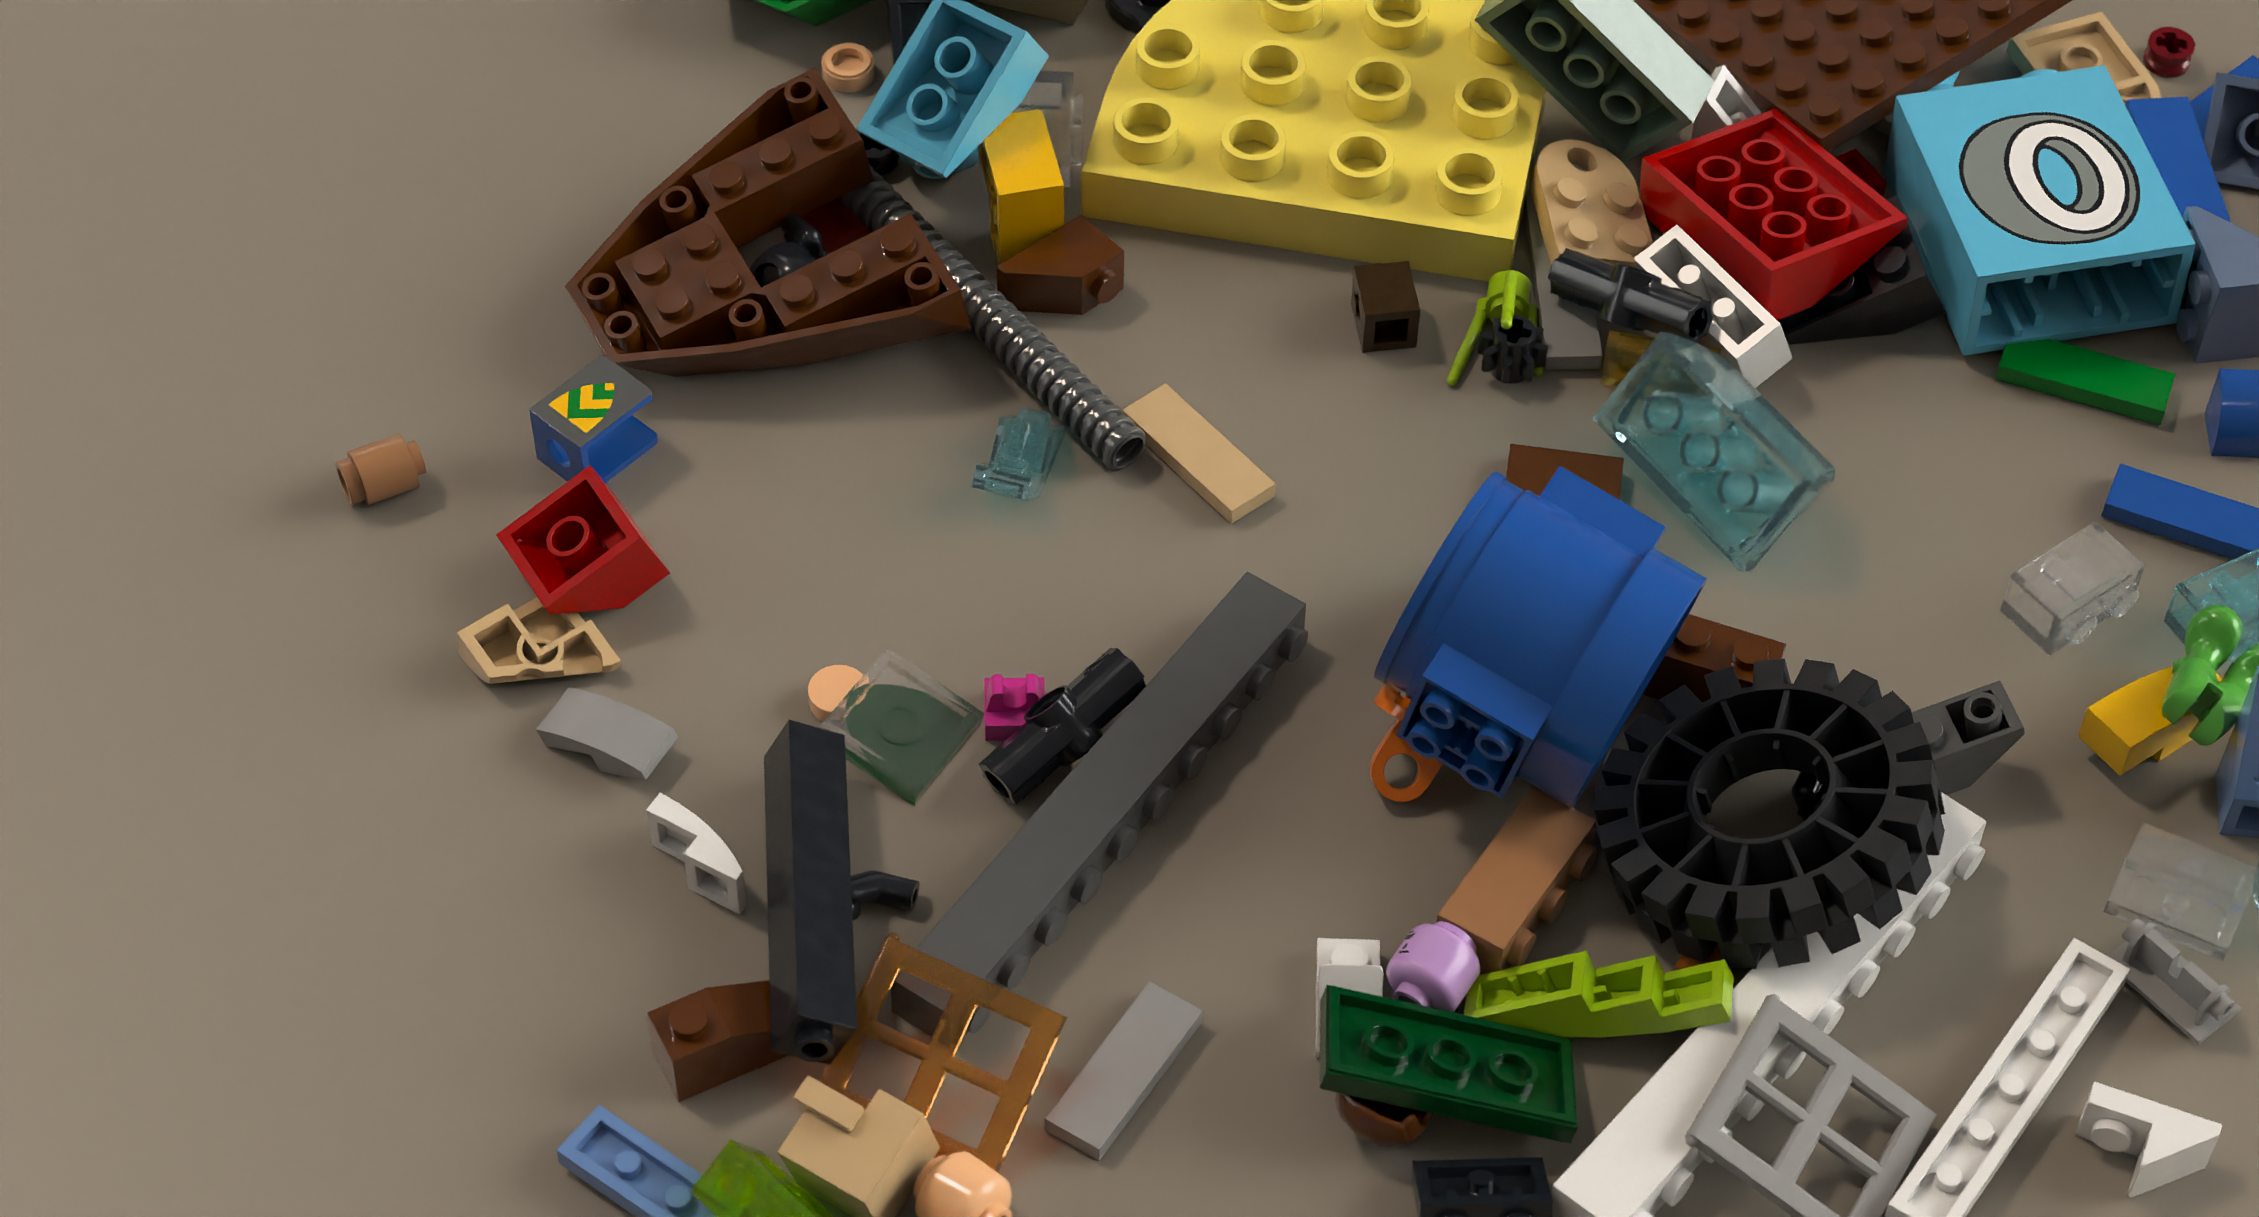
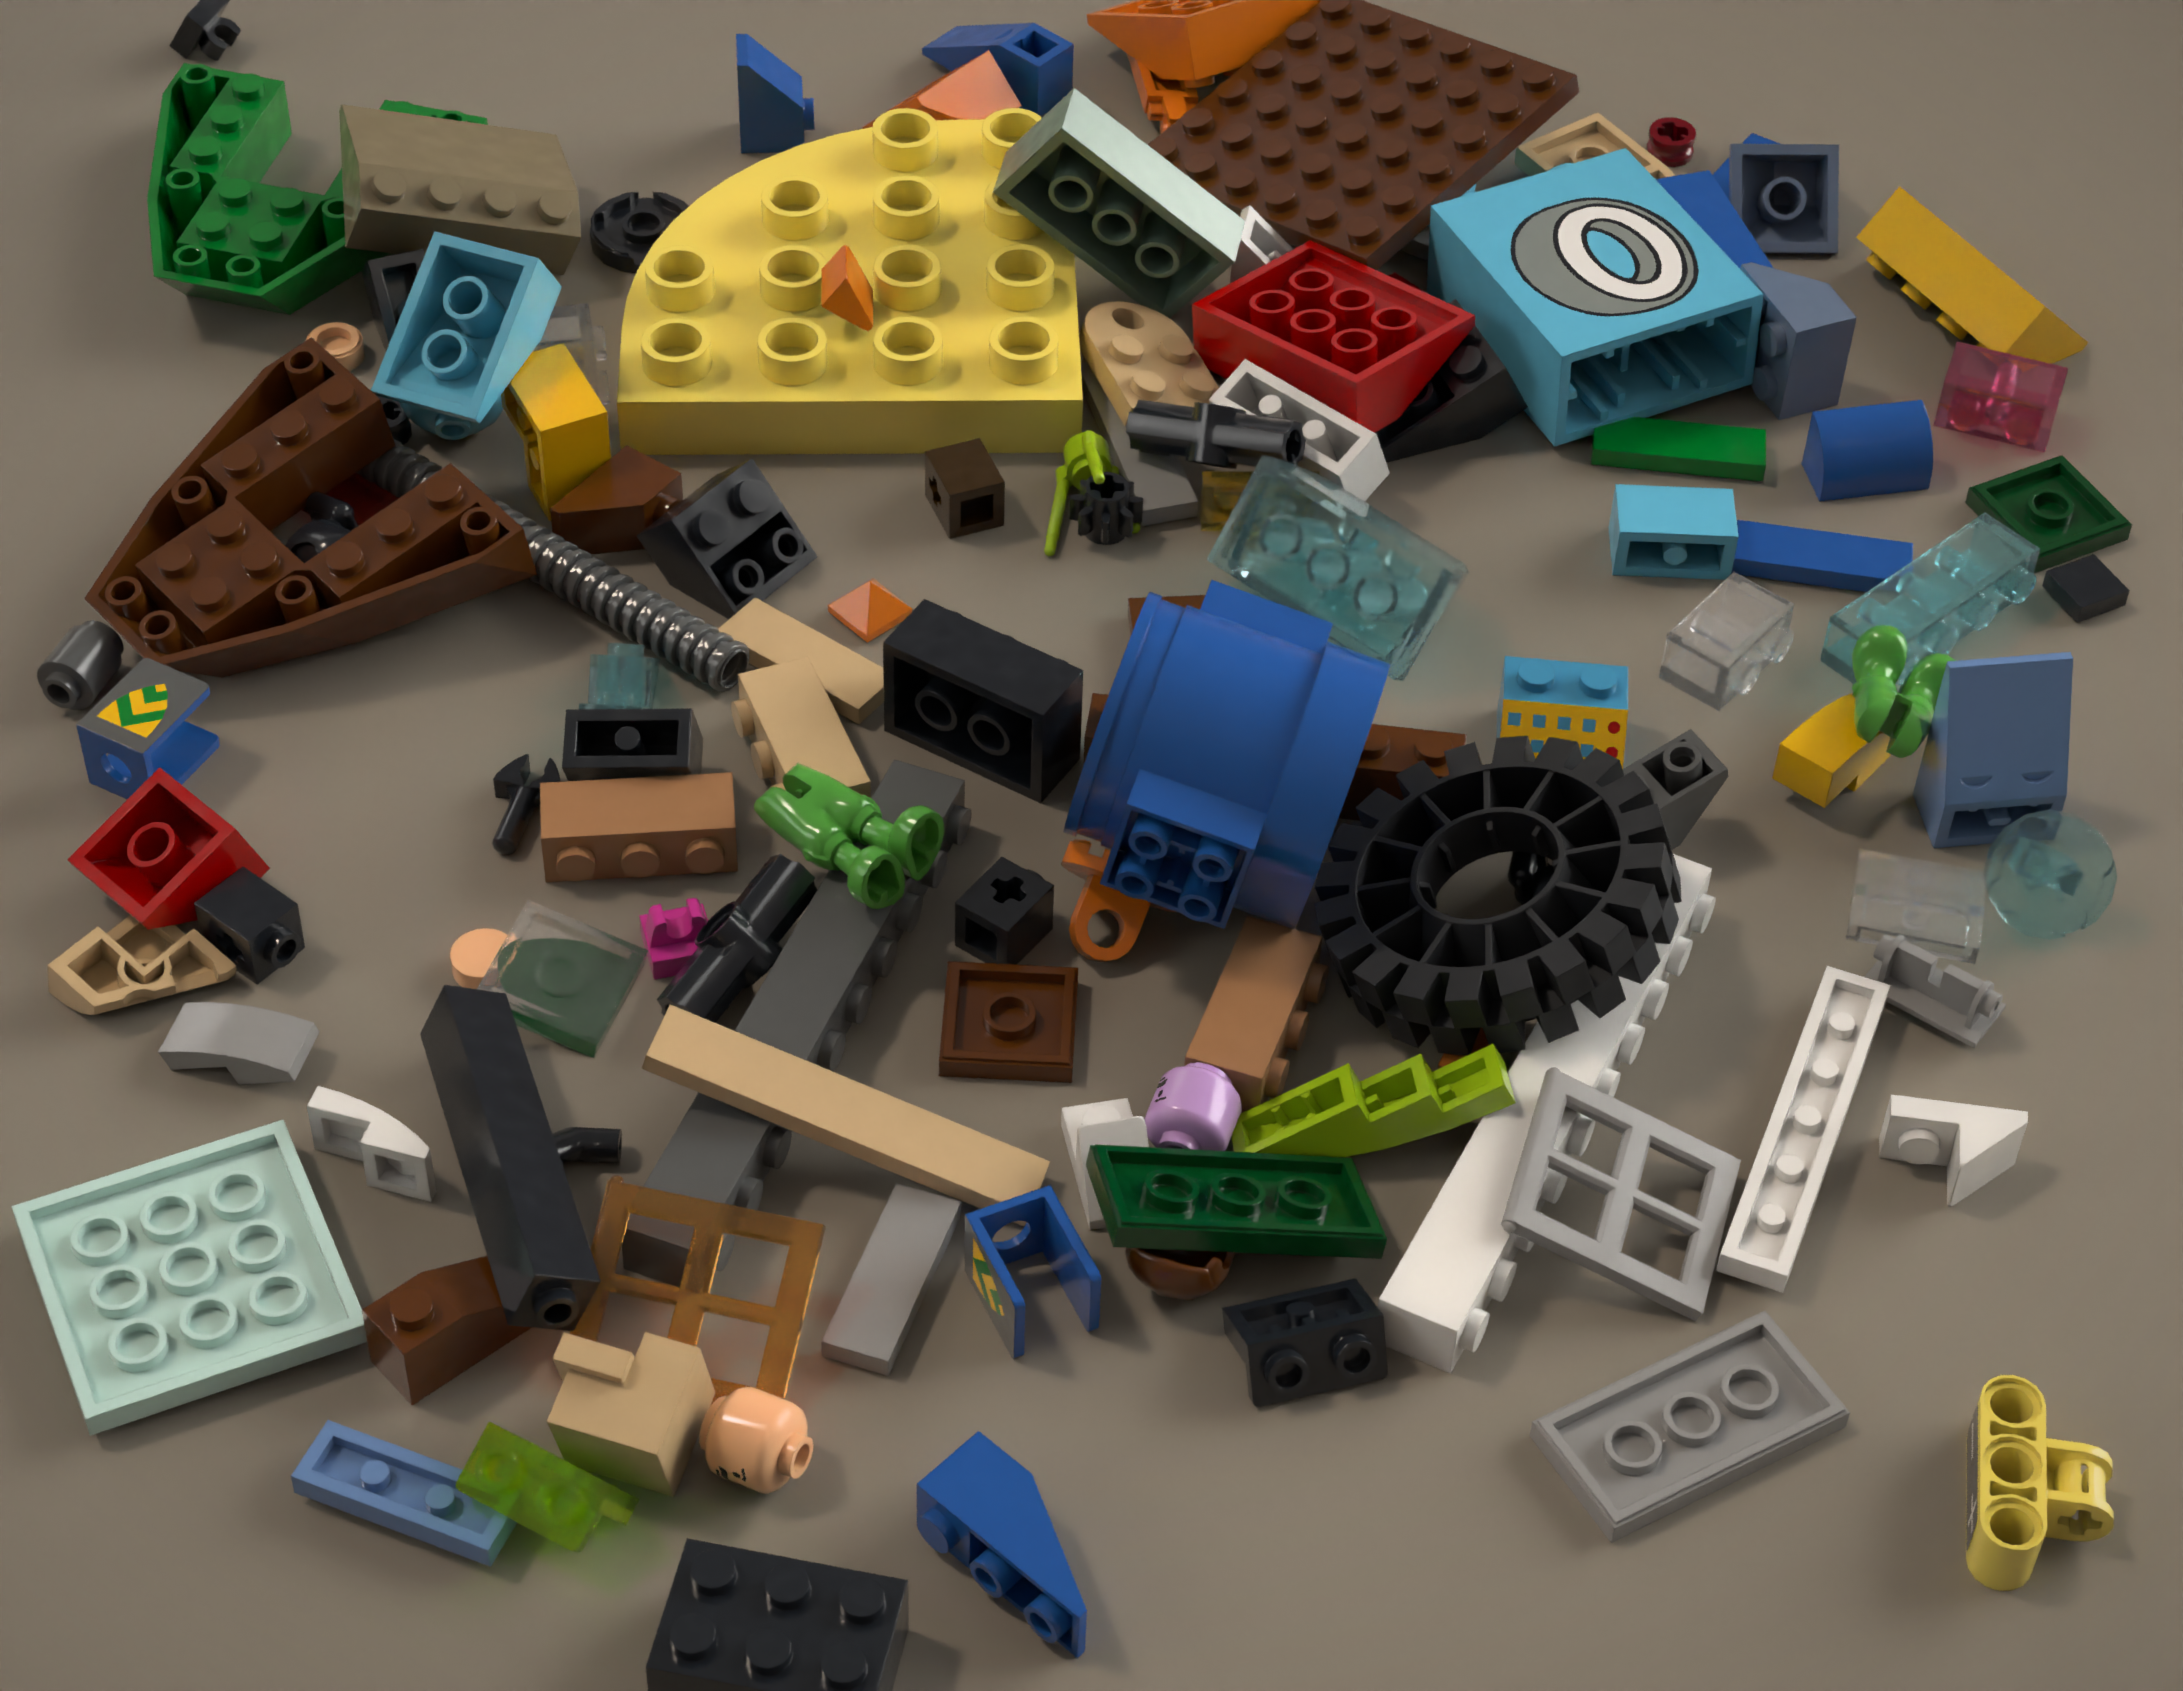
camera: 15 degrees left, 5 degrees down
(514, 945) = (188, 1276): none -> light aqua plate
(551, 346) = (81, 665): none -> dark grey brick
(641, 624) = (251, 924): none -> black brick
(910, 545) = (510, 784): none -> black bar
(1004, 593) = (638, 827): none -> medium nougat brick
(1014, 521) = (631, 743): none -> black brick
(1116, 911) = (840, 1112): none -> tan tile
(1154, 324) = (728, 541): none -> black slope
(1168, 542) = (794, 723): none -> tan brick
(1175, 621) = (827, 816): none -> bright green piece
(1266, 1055) = (1045, 1231): none -> blue piece
(1269, 412) = (870, 610): none -> orange slope
(1293, 843) = (1009, 1022): none -> reddish brown tile
(1313, 740) = (1006, 903): none -> black brick
(1317, 95) = (847, 290): none -> orange slope
(1342, 525) = (982, 700): none -> black brick
(1891, 636) = (1564, 702): none -> dark azure slope
(2052, 466) = (1672, 532): none -> medium azure brick

